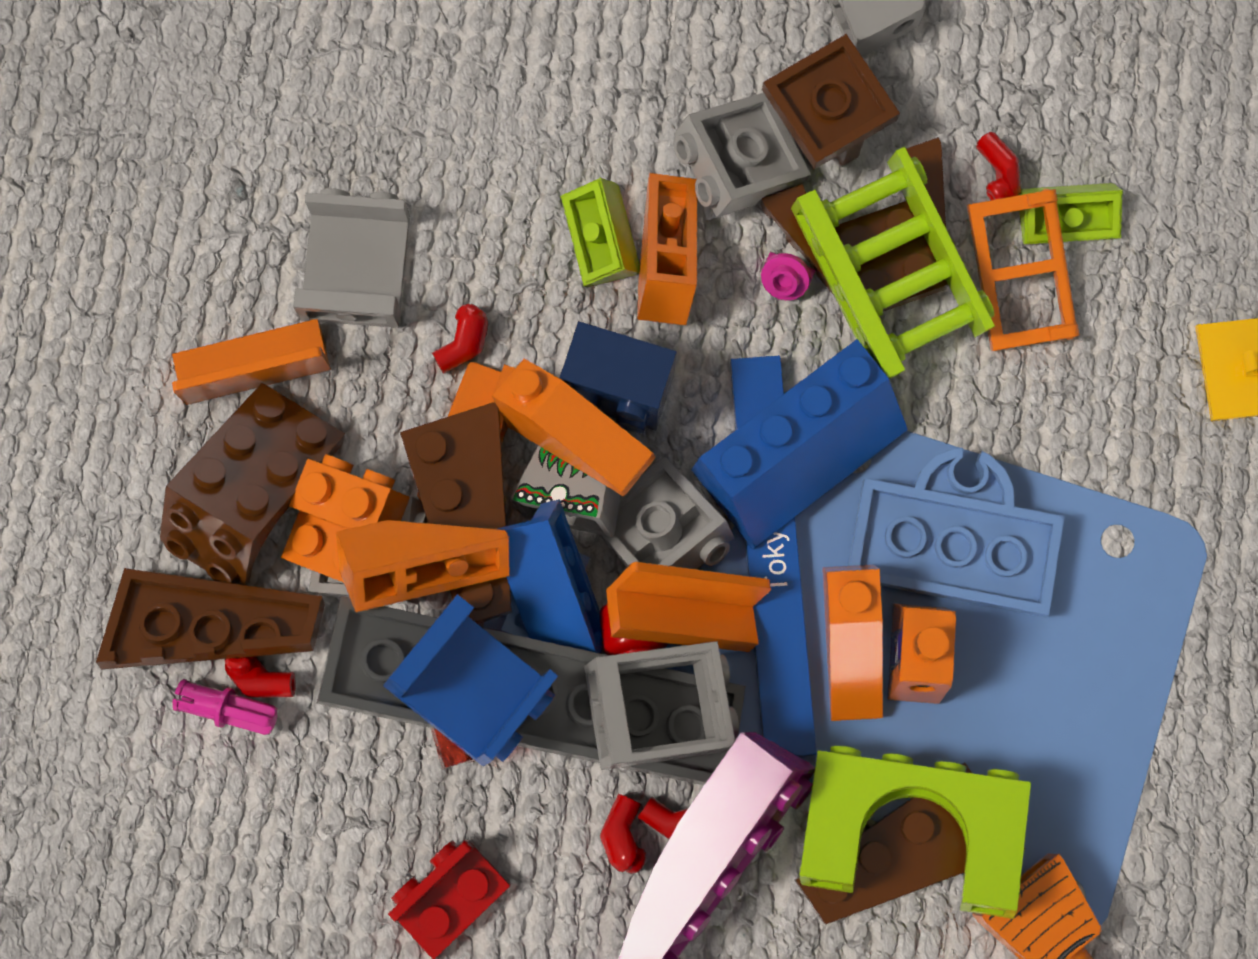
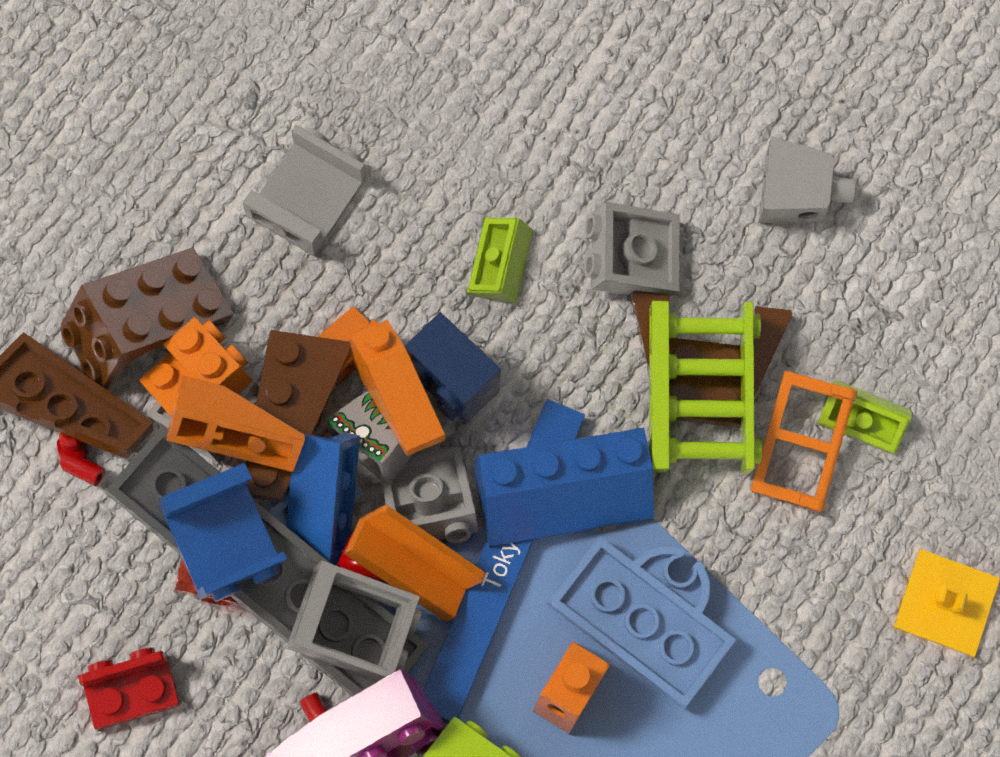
camera: 25 degrees right, 5 degrees down
(225, 707) = (42, 469): dark pink axle -> none
(249, 361) = (194, 227): orange panel -> none
(468, 339) = (359, 290): red arm -> none
(618, 839) = (276, 708): red arm -> none
(668, 250) = (541, 295): orange slope -> none
(786, 276) = (621, 358): dark pink plate -> none
(831, 102) = (718, 244): reddish brown bracket -> none
(854, 641) = (525, 652): orange slope -> none
(1005, 165) = (832, 355): red arm -> none

